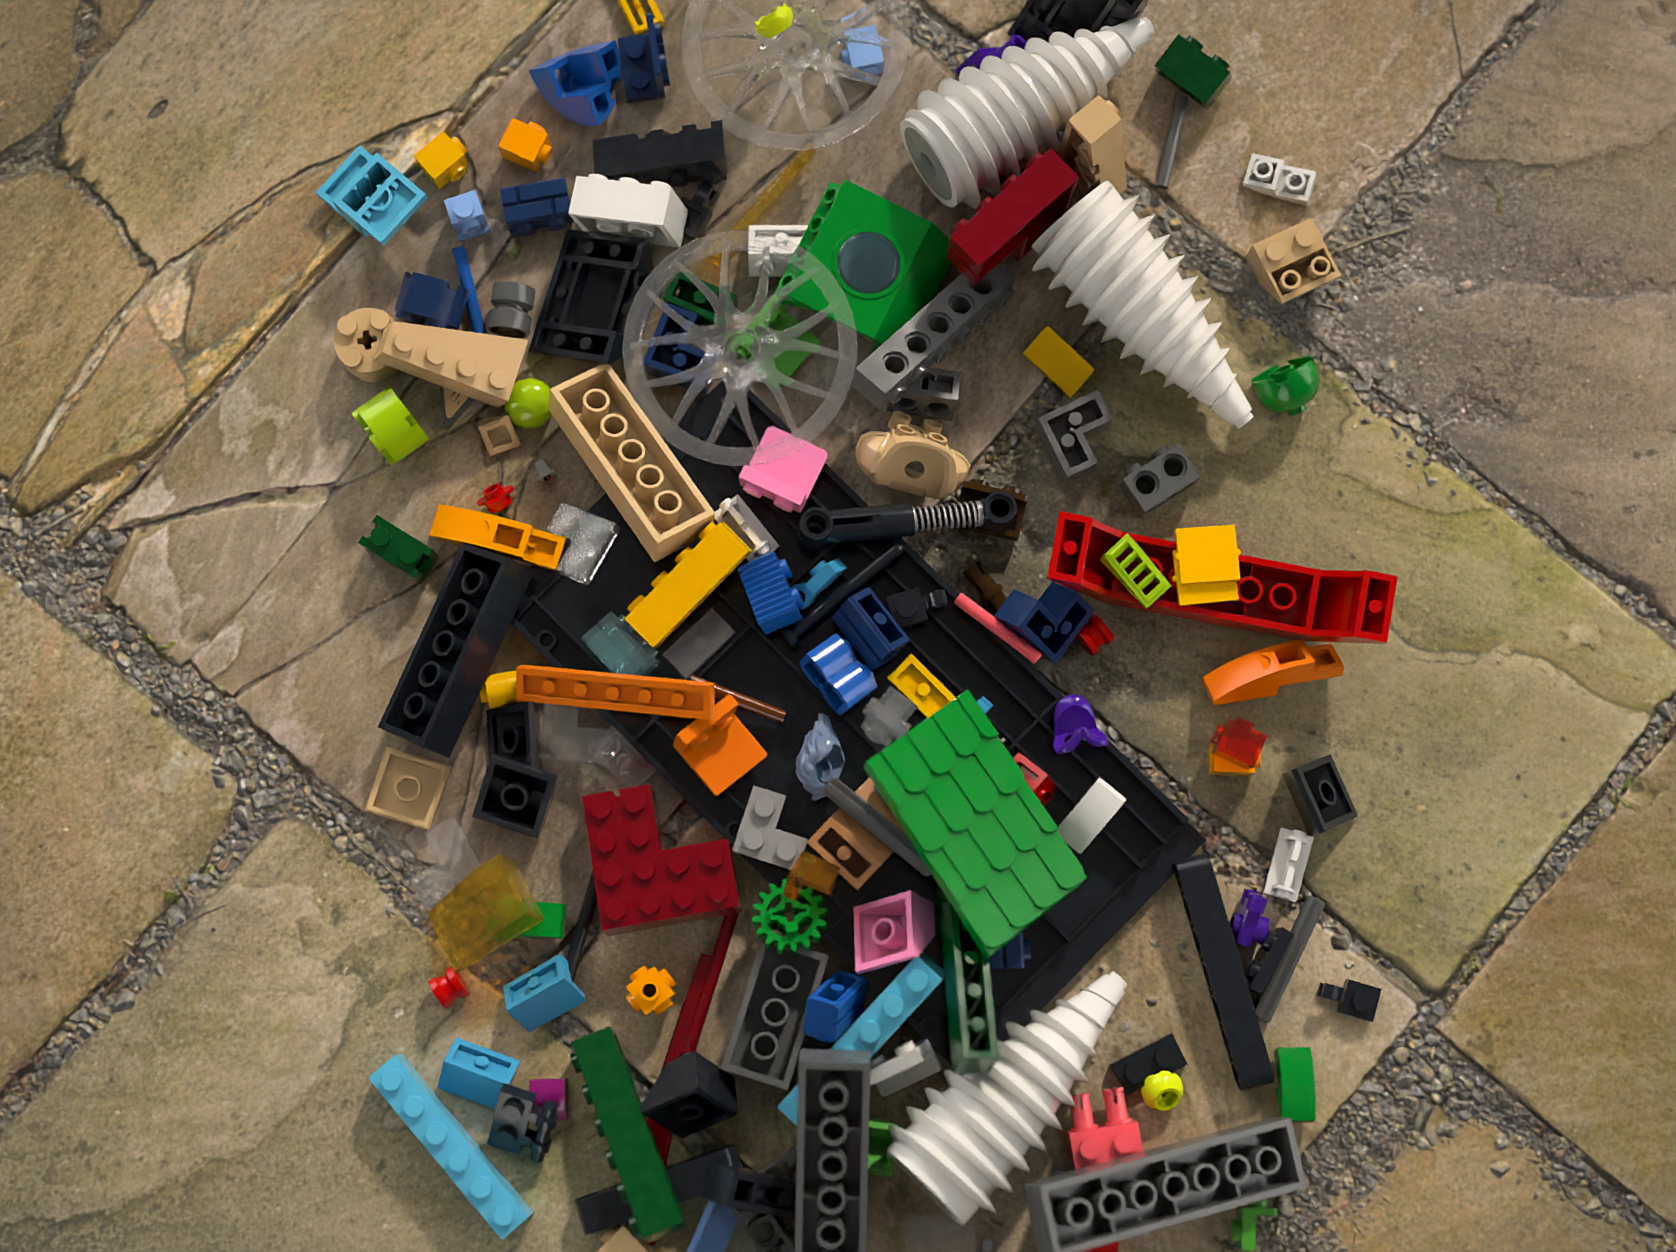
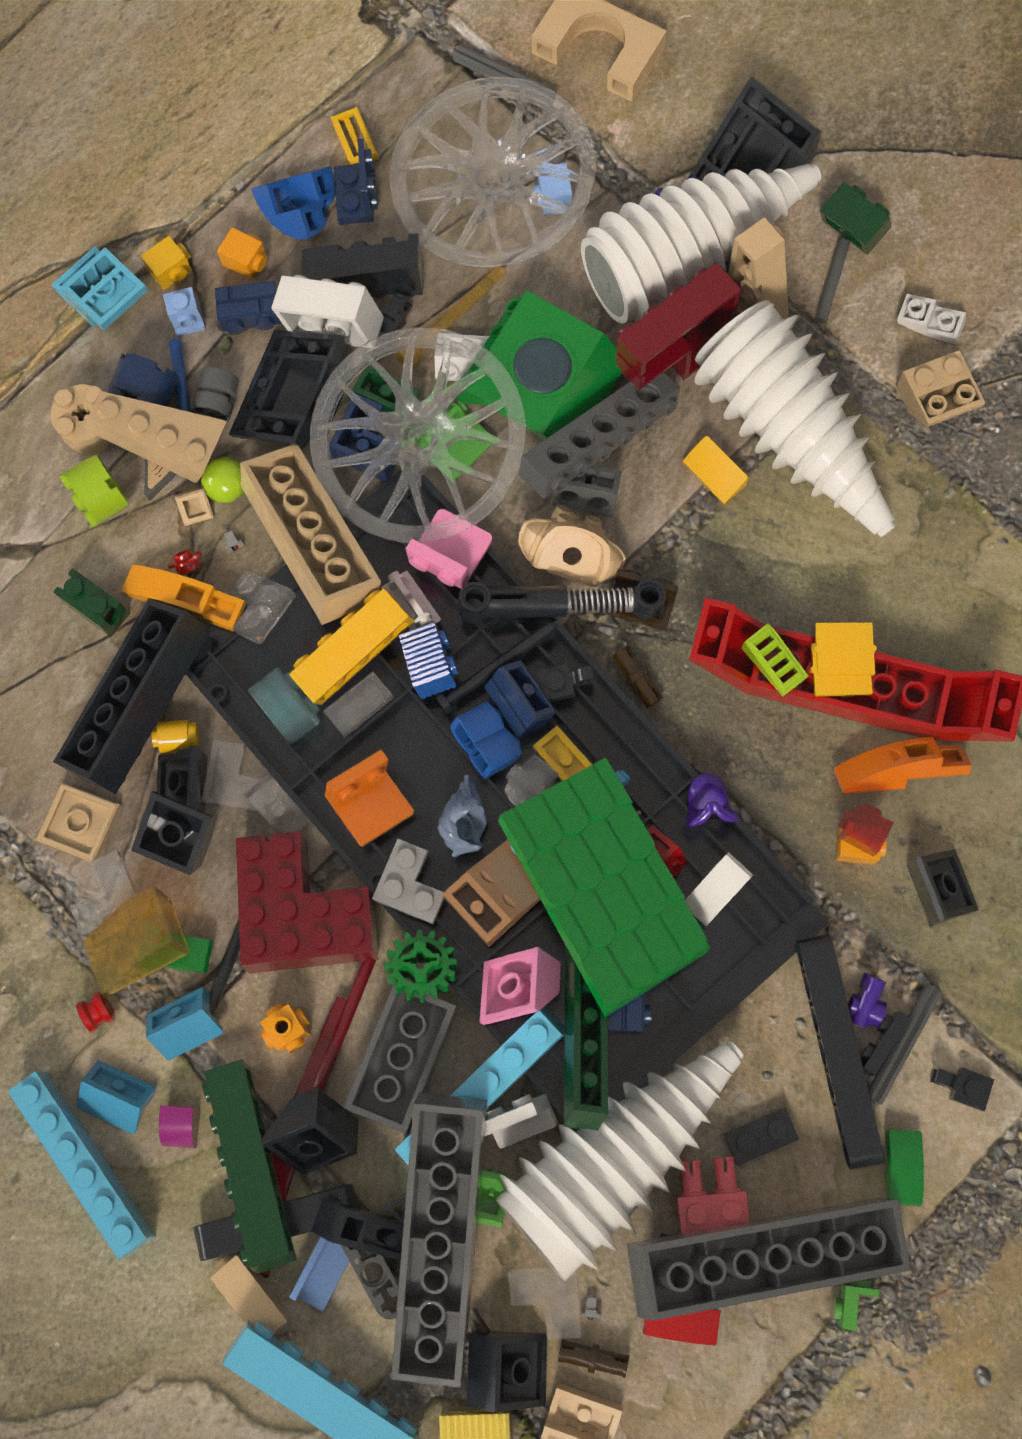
camera: 15 degrees right, 5 degrees down
(511, 1123) = (141, 1142): black plate -> none
(615, 691) = (275, 741): orange plate -> none
(746, 702) = (394, 759): reddish brown bar -> none
(775, 22) = (473, 151): neon yellow plate -> none
(812, 872) = (443, 922): clear orange panel -> none
(822, 576) = (478, 650): dark azure plate -> none
(835, 1006) = (457, 1055): blue brick -> none
(875, 823) = (508, 880): dark grey axle -> none
(998, 628) = (641, 707): coral bar -> none
(1047, 622) = (689, 706): dark blue brick -> none
(1066, 433) = (718, 532): flat silver brick -> none
(1094, 635) = (732, 721): red wheel -> none
(1162, 1091) = (772, 1163): neon yellow plate -> none
(1163, 486) = (807, 588): dark grey brick -> none
(1287, 386) = (930, 503): green cylinder -> none
(1288, 864) = (908, 951): white hinge -> none

